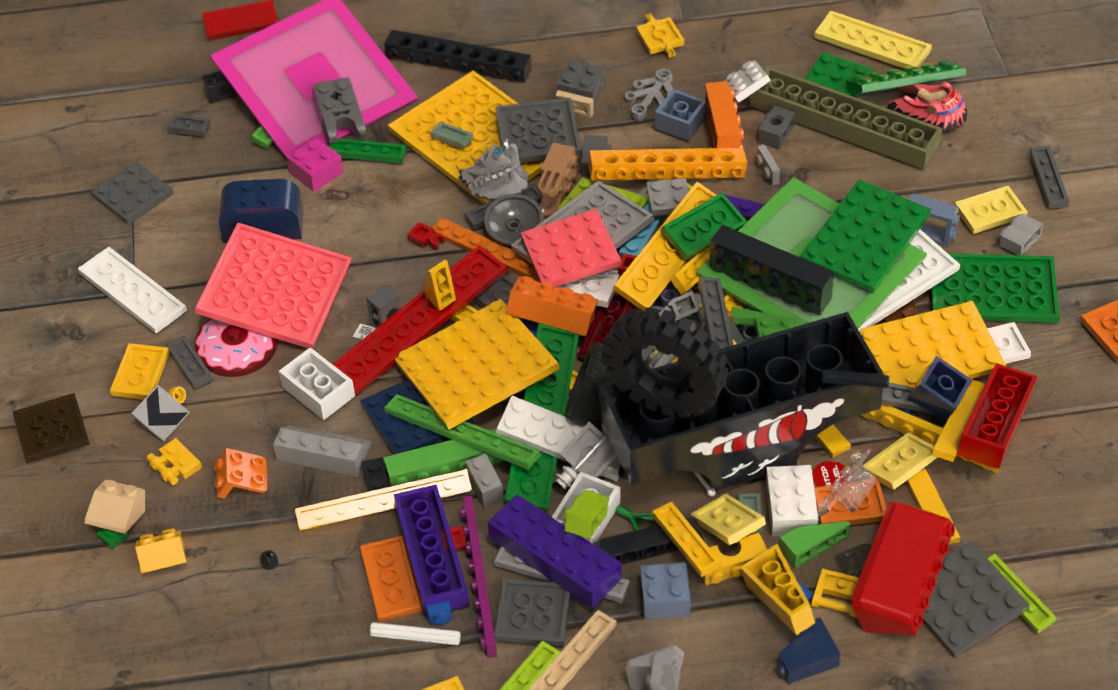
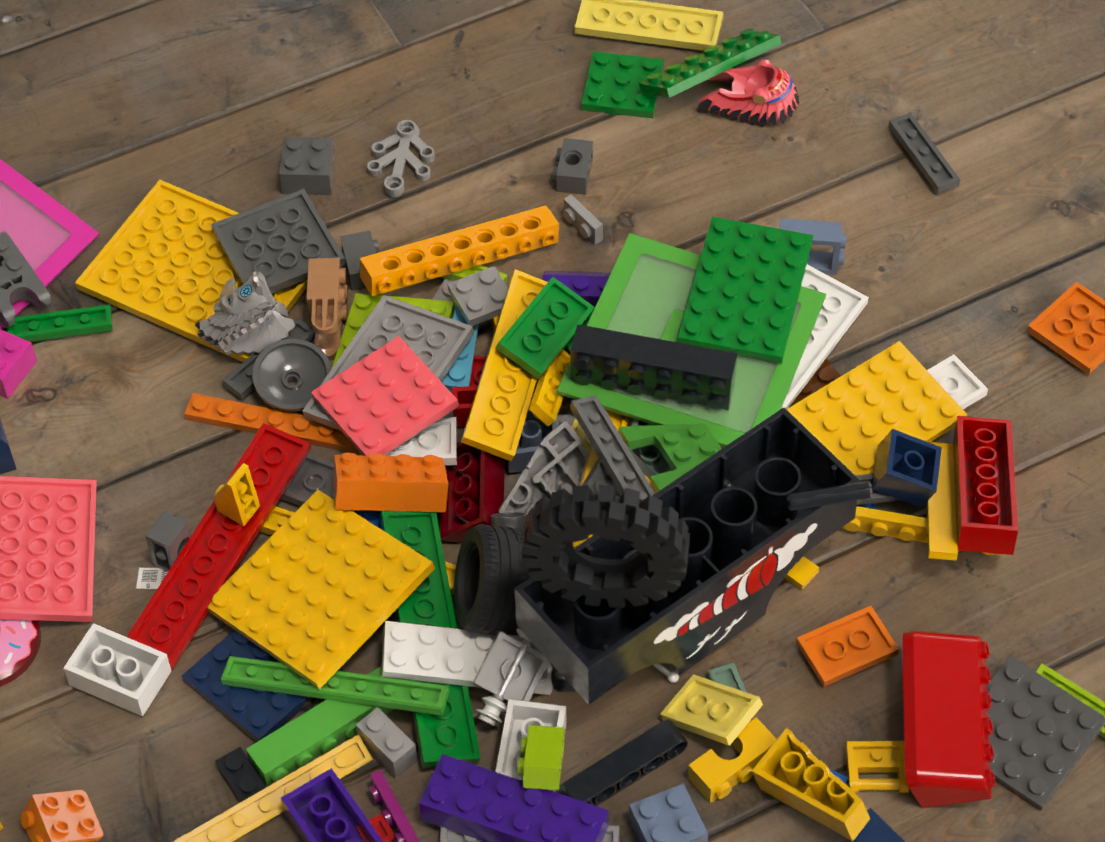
camera: 20 degrees left, 5 degrees up
(321, 449) = (156, 758): light grey slope -> none
(424, 235) = (180, 423): red plate -> none
(452, 135) = (166, 277): sand green tile -> none
(458, 56) = (131, 163): black brick -> none
(581, 104) = (319, 193): tan plate -> none
(632, 516) = (588, 737): green plant -> none
(660, 35) = (382, 75): yellow plate -> none
(680, 114) = (450, 178): sand blue brick -> none
(686, 539) = (673, 753): yellow plate -> none
(722, 116) = (505, 170): orange brick -> none
(747, 80) = (518, 113): white plate -> none
(790, 498) = (777, 662): white brick -> none
(810, 541) = (817, 709): bright green slope -> none
(827, 473) = (808, 613): red sticker -> none
(850, 118) = (656, 132): olive brick -> none
(851, 487) = (843, 624): clear bracket -> none
(860, 554) = (889, 708): clear smoke plate -> none
(901, 460) = (887, 573): light yellow plate -> none
(928, 497) = (932, 608): yellow tile -> none
(929, 97) = (750, 85): tan arm -> none
(990, 209) = (872, 212): light yellow plate -> none
(1002, 287) = (924, 308): green plate -> none
(1020, 234) = (919, 237): light grey brick -> none

